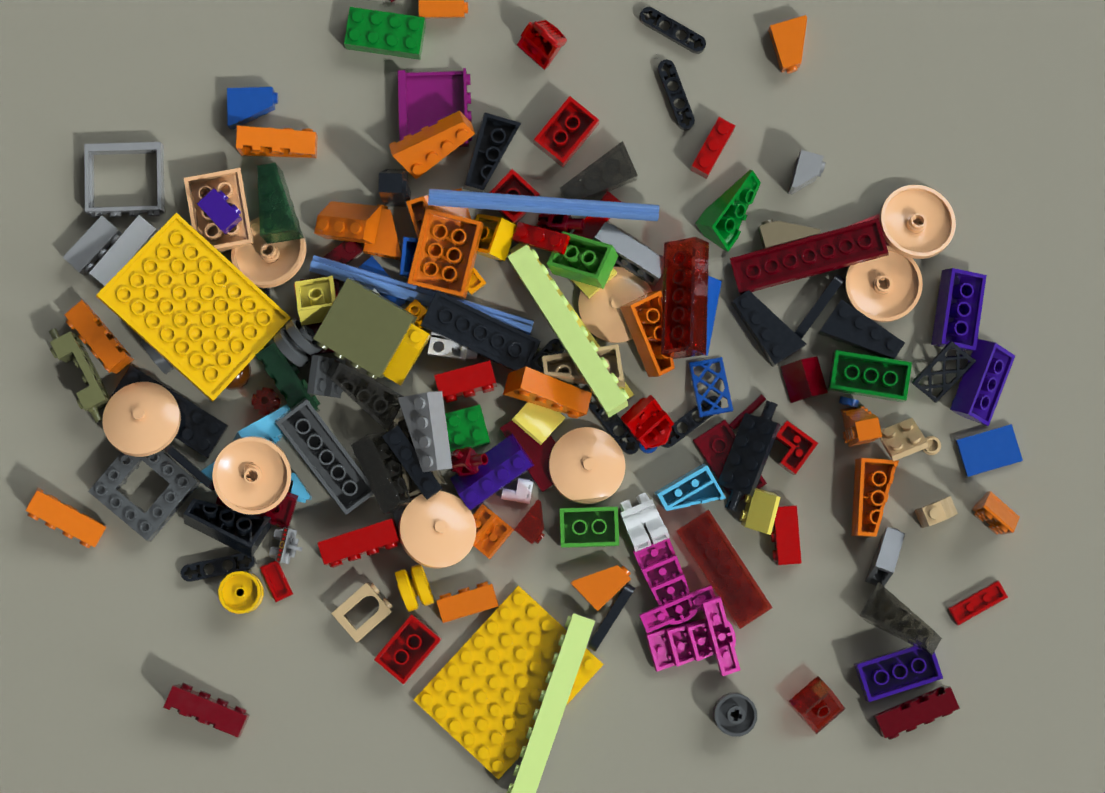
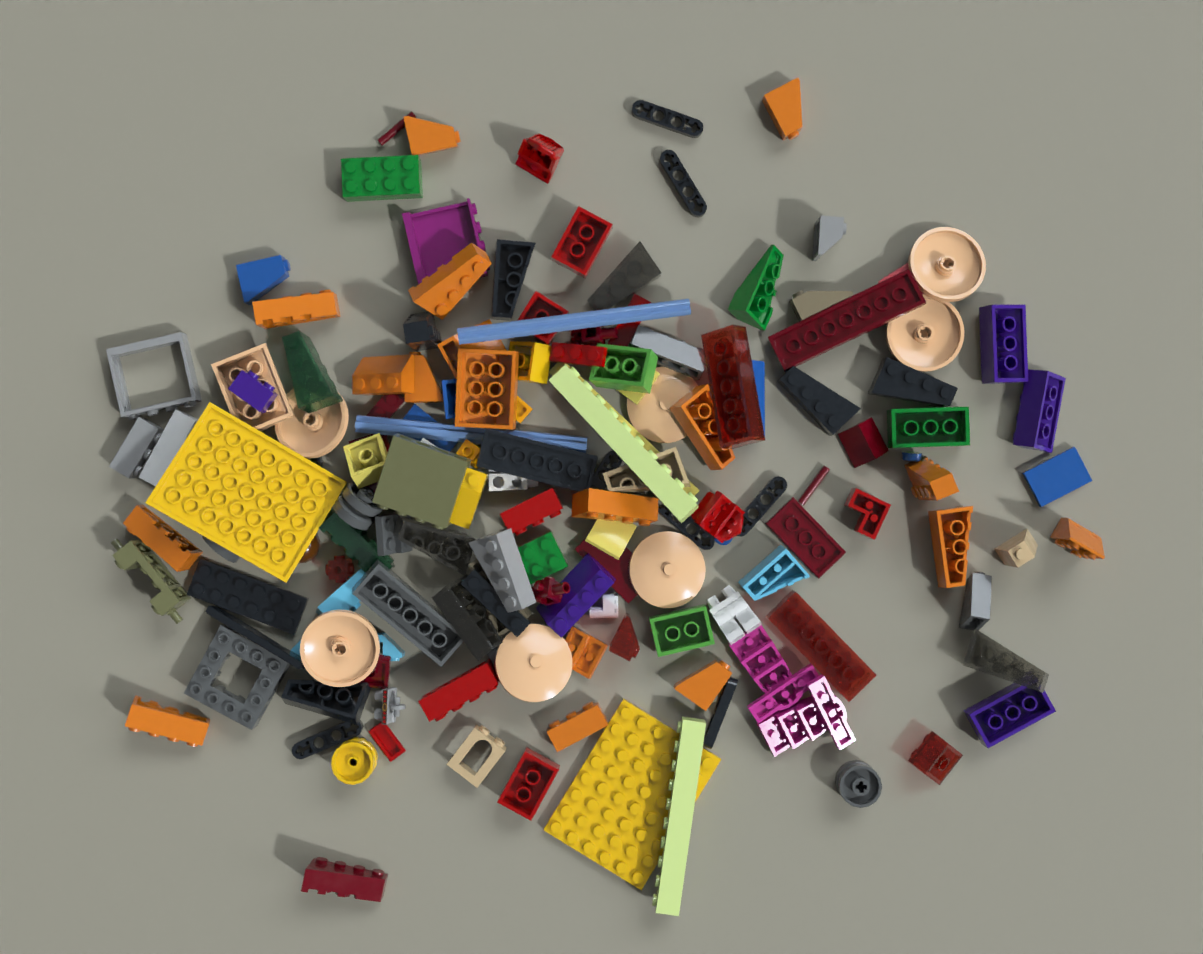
camera: 10 degrees left, 5 degrees up
(141, 419) = (220, 612): light nougat dish -> none
(411, 588) = (522, 723): yellow wheel -> none
(699, 398) = (782, 454): blue window -> none
(712, 147) = (730, 229): red brick -> none
(749, 454) = (824, 528): black plate -> none
(760, 511) = (846, 581): light yellow slope -> none
(786, 536) = (874, 599): red brick -> none
(819, 306) = (865, 367): black beam -> none
(903, 439) = (974, 483): tan plate -> none
(916, 711) = (1034, 746): dark red wedge -> none
(934, 445) = (999, 483): tan plate -> none
(941, 357) = (997, 396): black window -> none
(977, 602) = (1072, 627): red tile -> none

